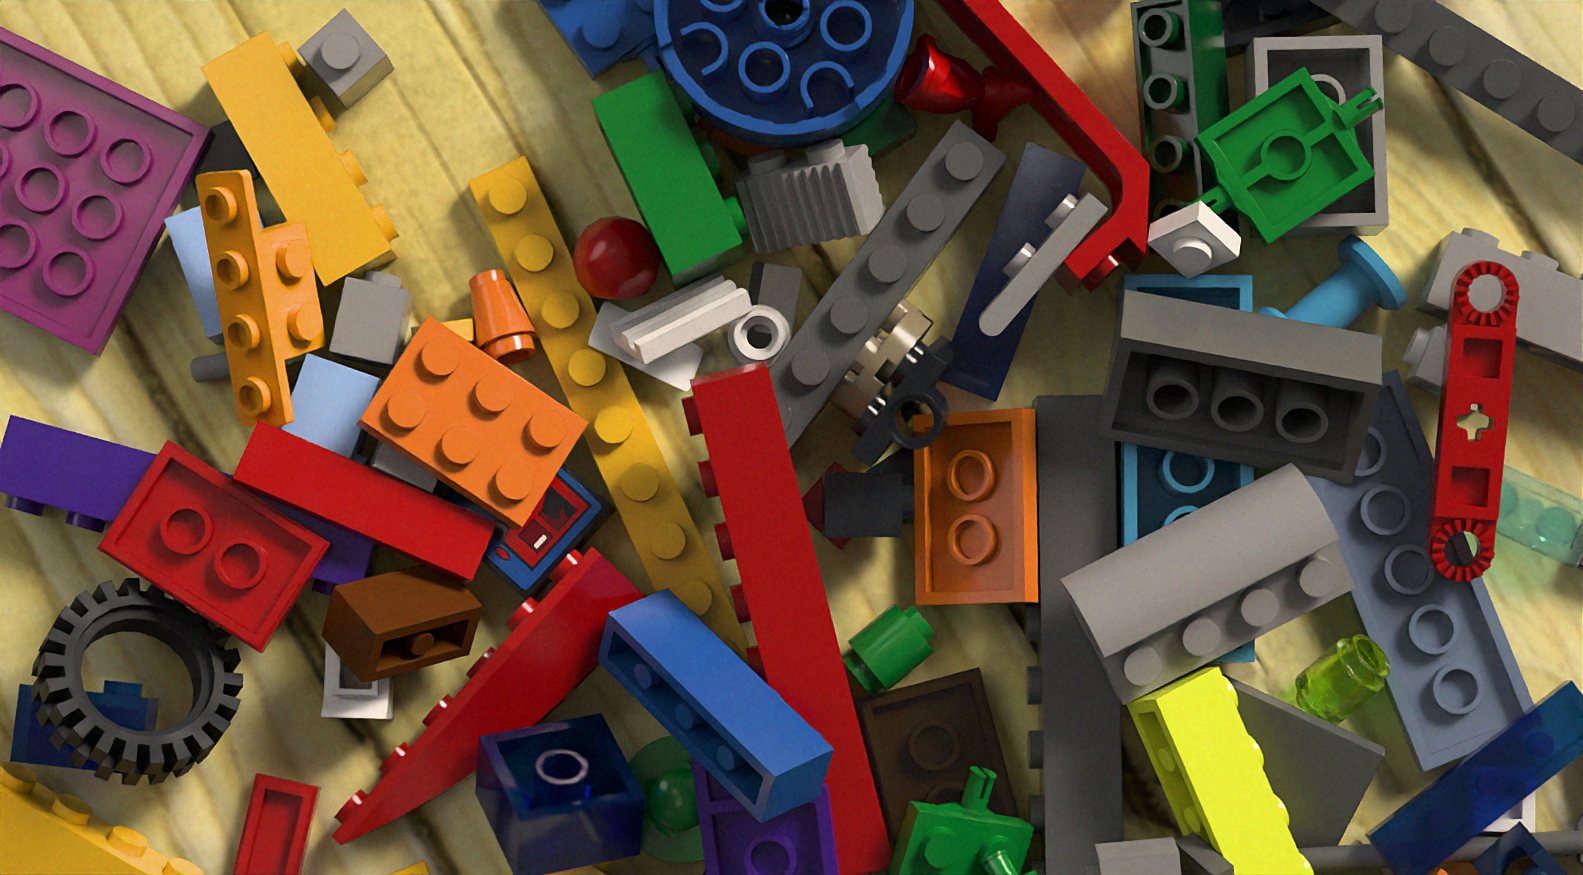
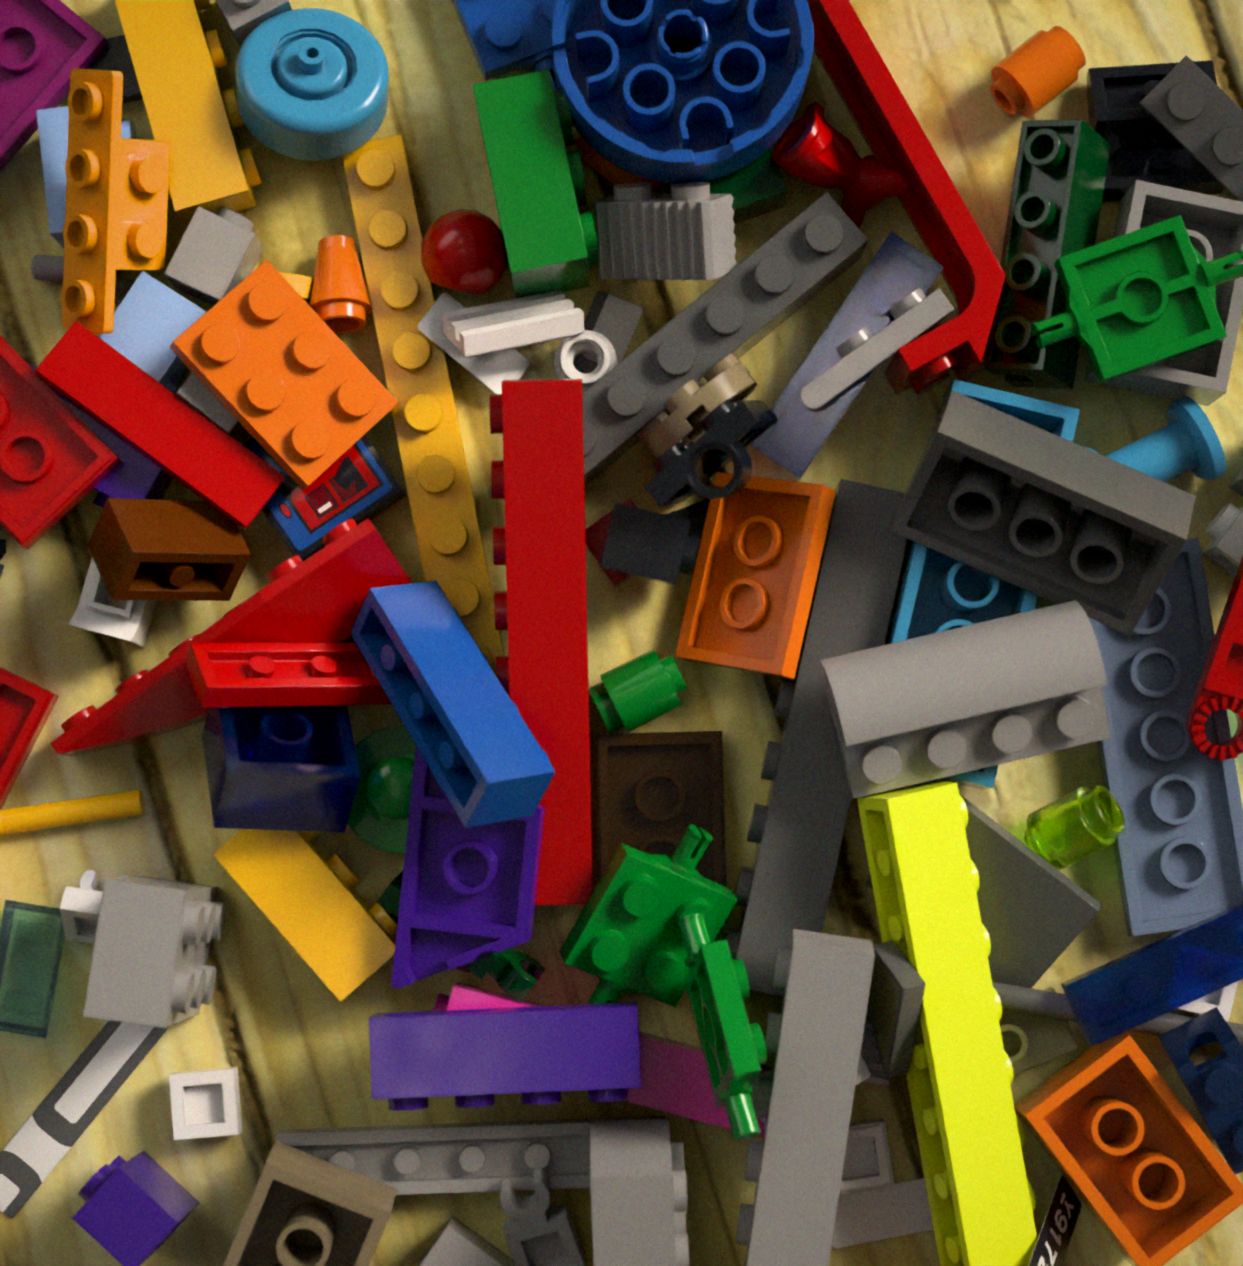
camera: 15 degrees right, 0 degrees up
(427, 128) = (312, 84): none -> dark azure wheel
(544, 717) = (282, 675): none -> red plate
(1194, 240) = (1032, 359): white plate -> none

